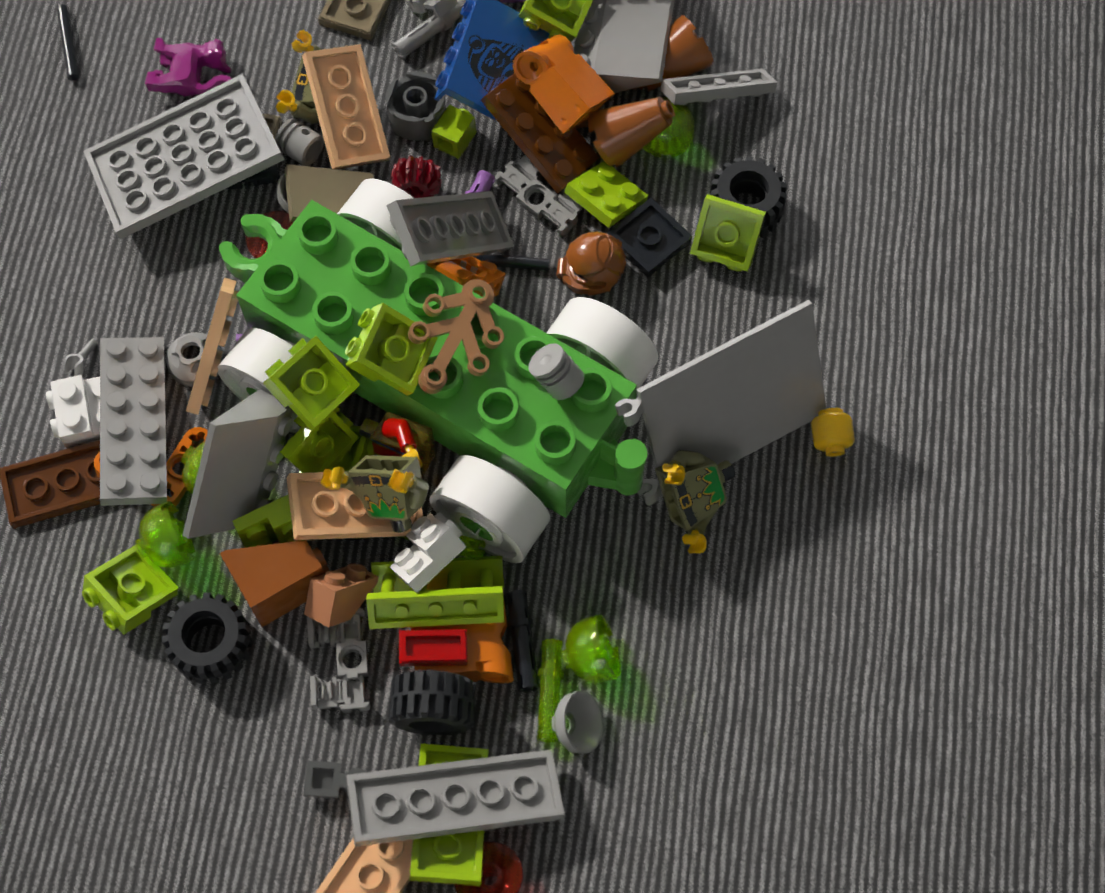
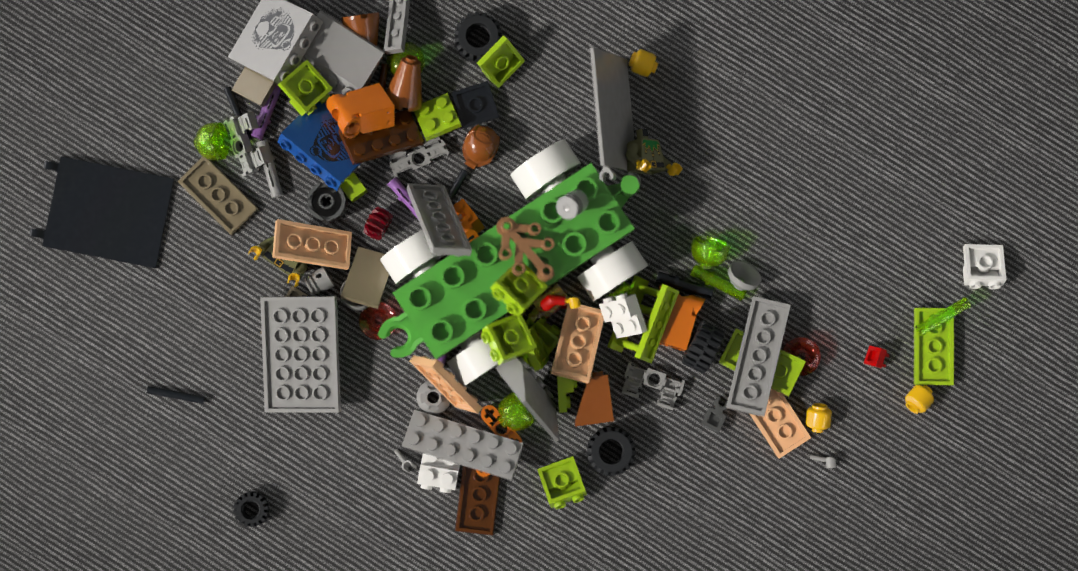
camera: 65 degrees left, 20 degrees up
(163, 539) = (543, 452): clear neon green cylinder -> none
(186, 67) = (233, 329): magenta animal -> none
(338, 594) = (619, 371): nougat slope -> none
(385, 485) = (582, 323): torso -> none
(433, 647) = (675, 334): red tile -> none

